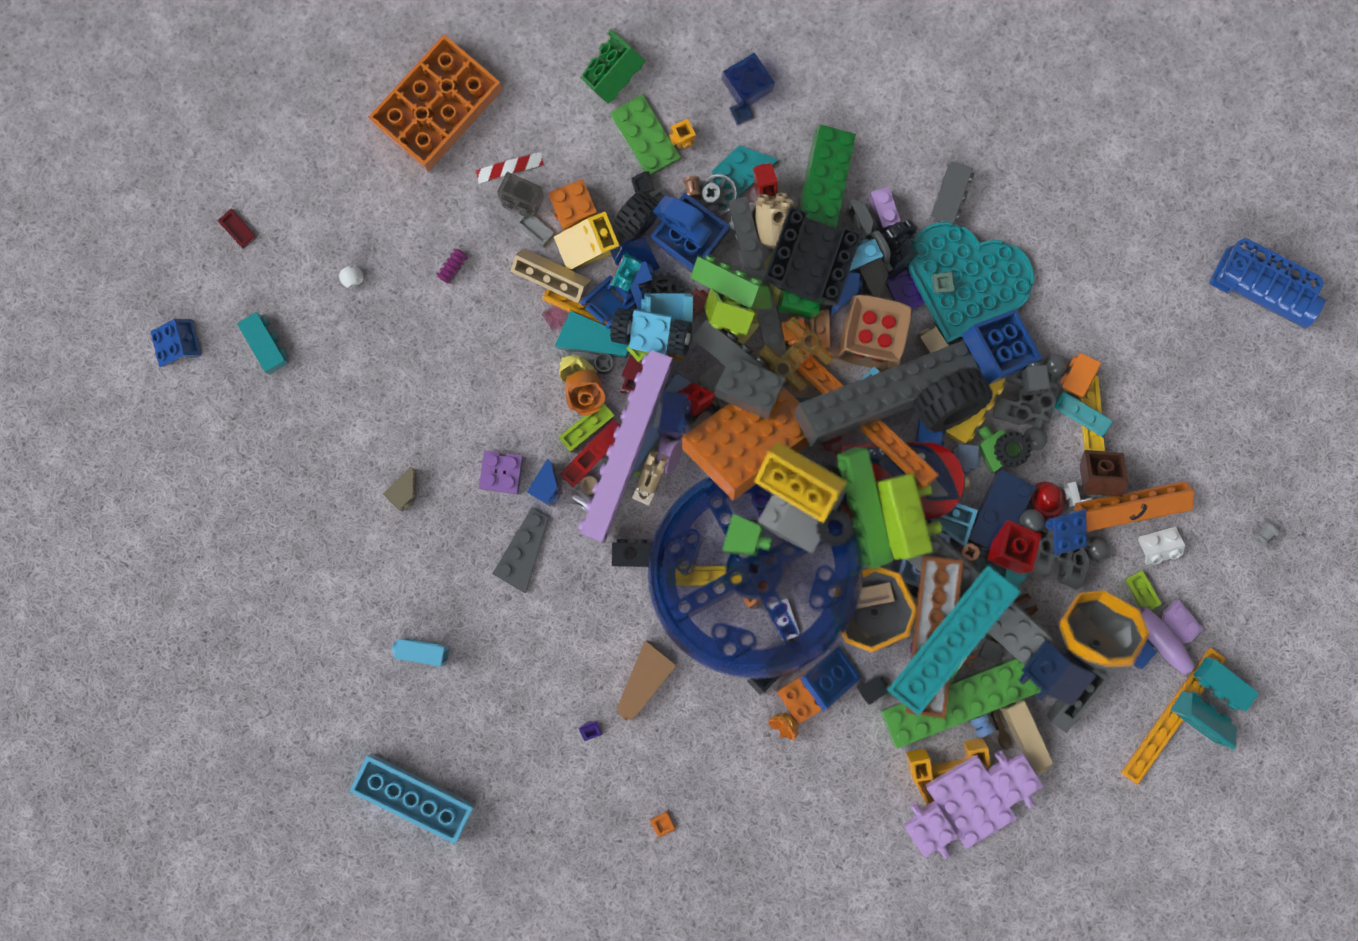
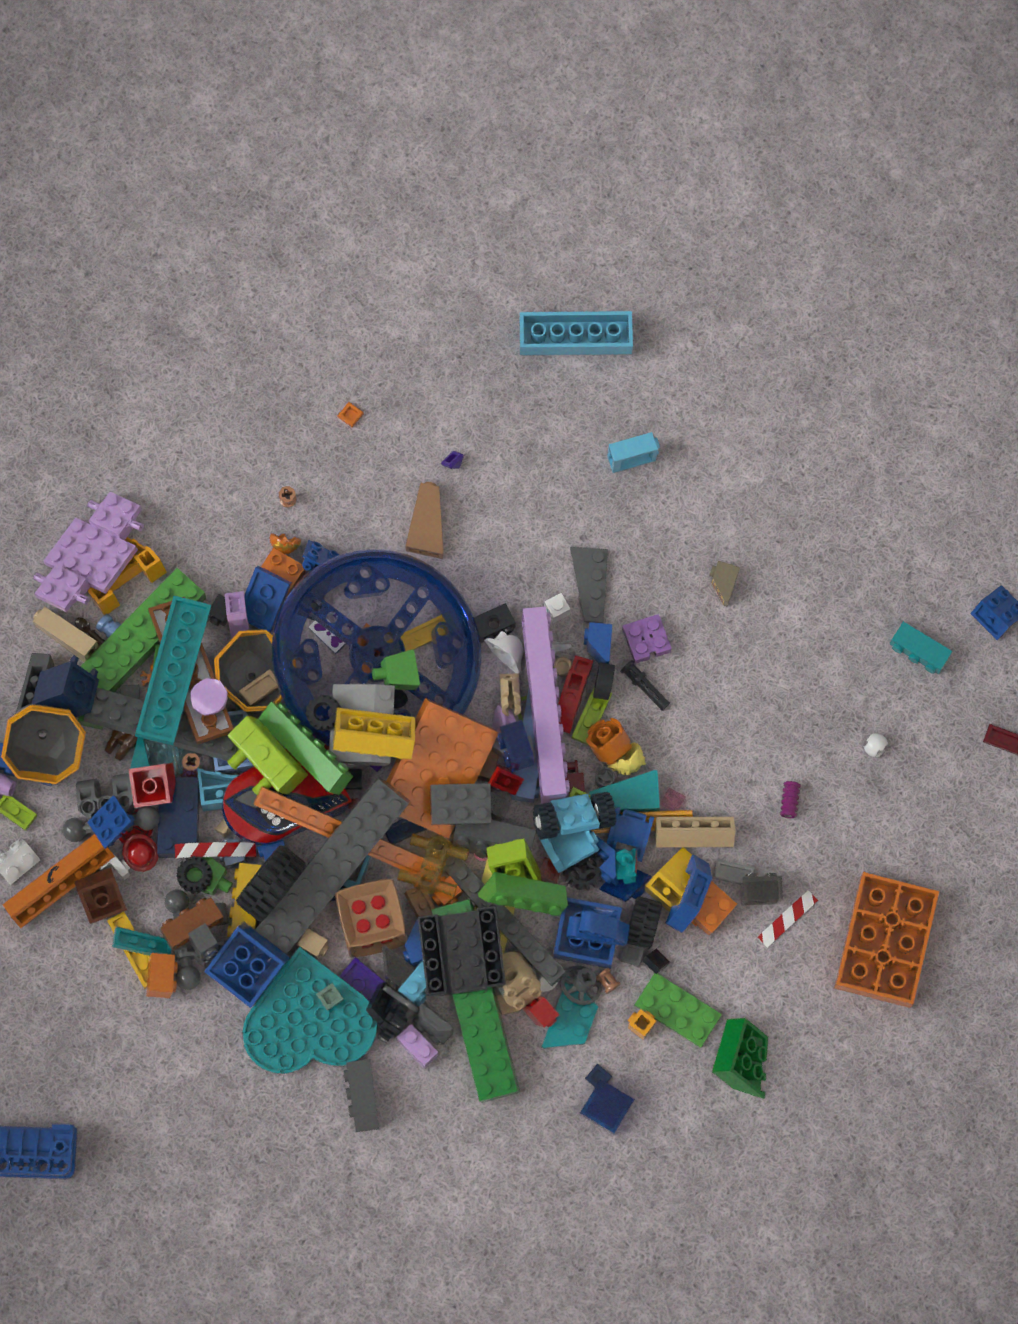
camera: 150 degrees right, 10 degrees down
(526, 440) = (636, 680): none -> black pin
(560, 445) = (604, 681): none -> black tyre
(566, 539) = (557, 607): none -> white brick
(579, 214) = (694, 894): none -> blue slope
(629, 522) = (508, 650): none -> white hat
(756, 765) = (284, 502): none -> nougat bush
(759, 694) = (316, 554): none -> blue hinge
(863, 674) = (236, 612): none -> lavender bracket
(933, 596) = (208, 696): none -> lavender hat
(986, 465) = (214, 849): none -> sticker
(1035, 406) = (177, 930): none -> dark orange brick

